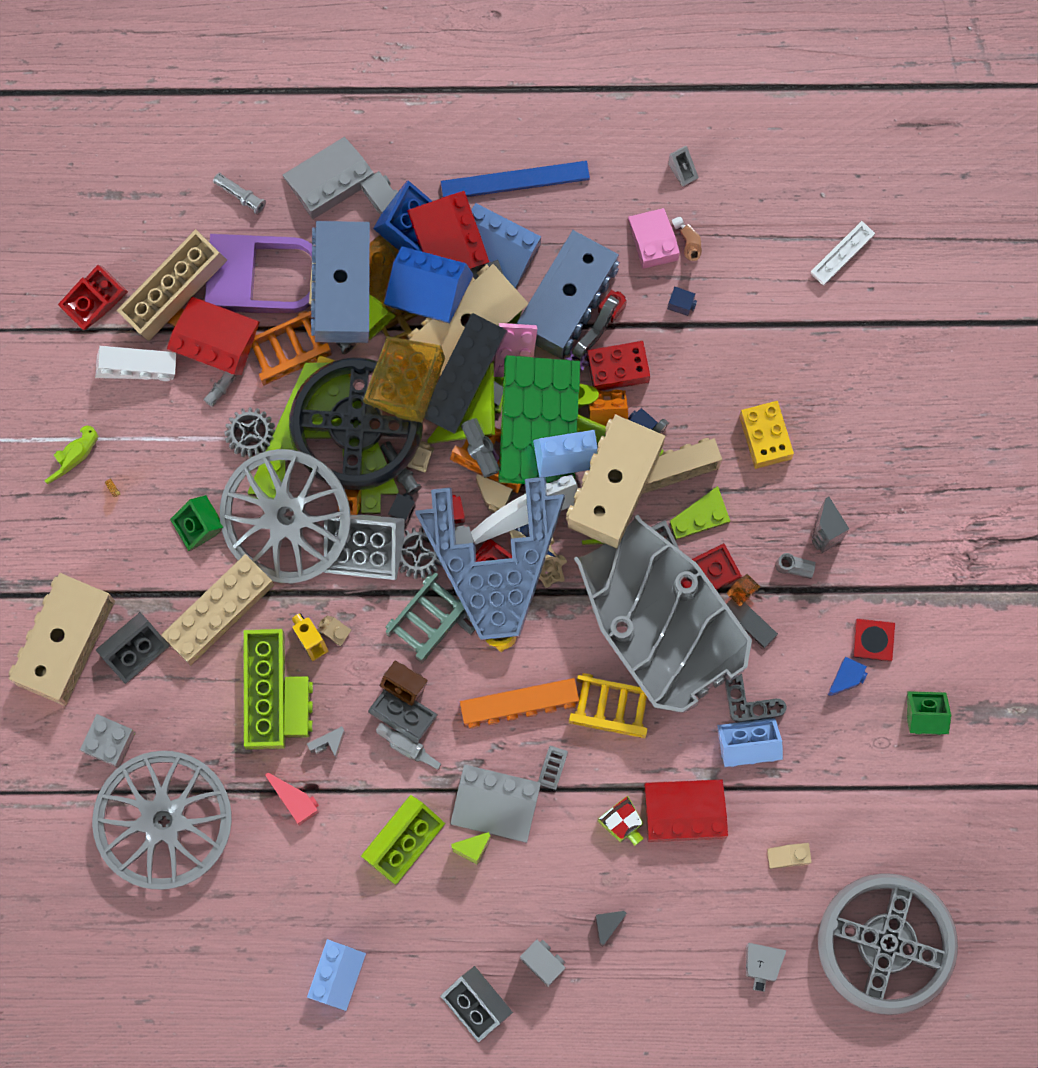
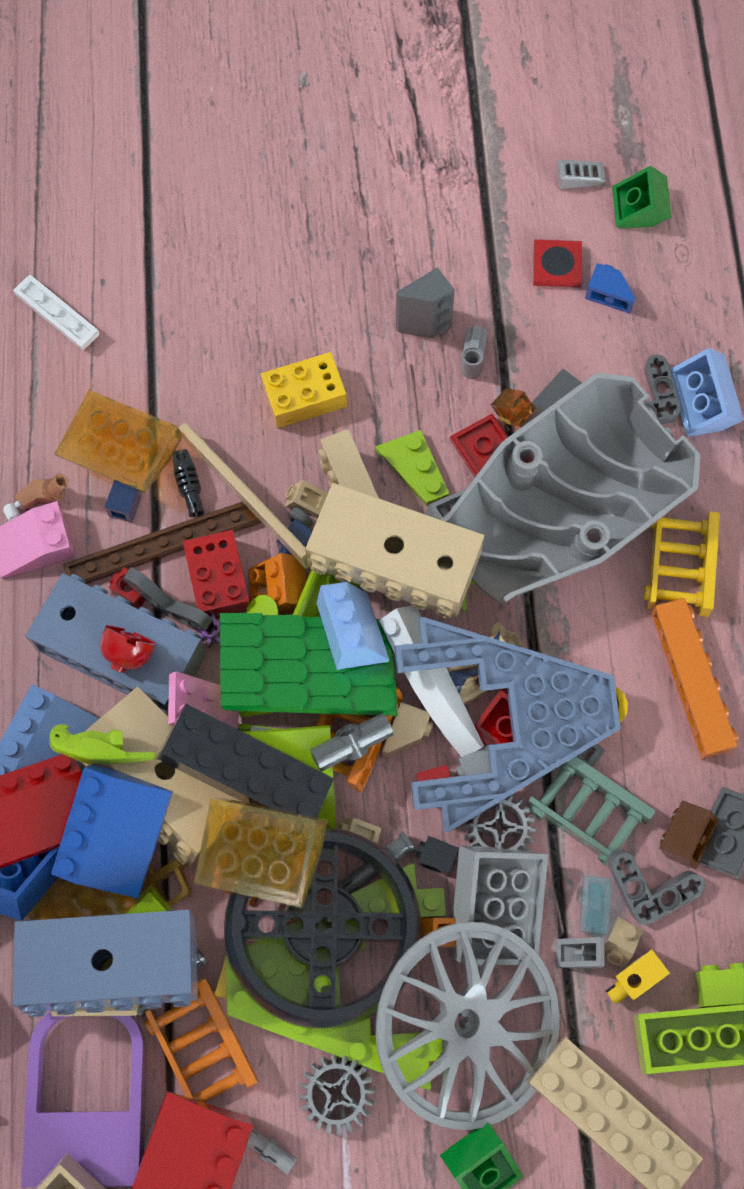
camera: 90 degrees left, 5 degrees down
(328, 601) = (580, 953): none -> light grey slope
(360, 614) = (595, 905): none -> clear light blue plate
(362, 648) = (644, 896): none -> dark grey beam
(482, 270) = (94, 746): none -> lime animal
(555, 295) = (125, 649): none -> red cylinder
(649, 331) = (159, 543): none -> reddish brown tile
(677, 432) = (306, 497): none -> tan bracket
(683, 382) = (244, 494): none -> tan tile
(695, 347) = (187, 481): none -> black hinge
(726, 297) = (119, 441): none -> clear yellow slope
(964, 666) = (572, 181): none -> light grey slope

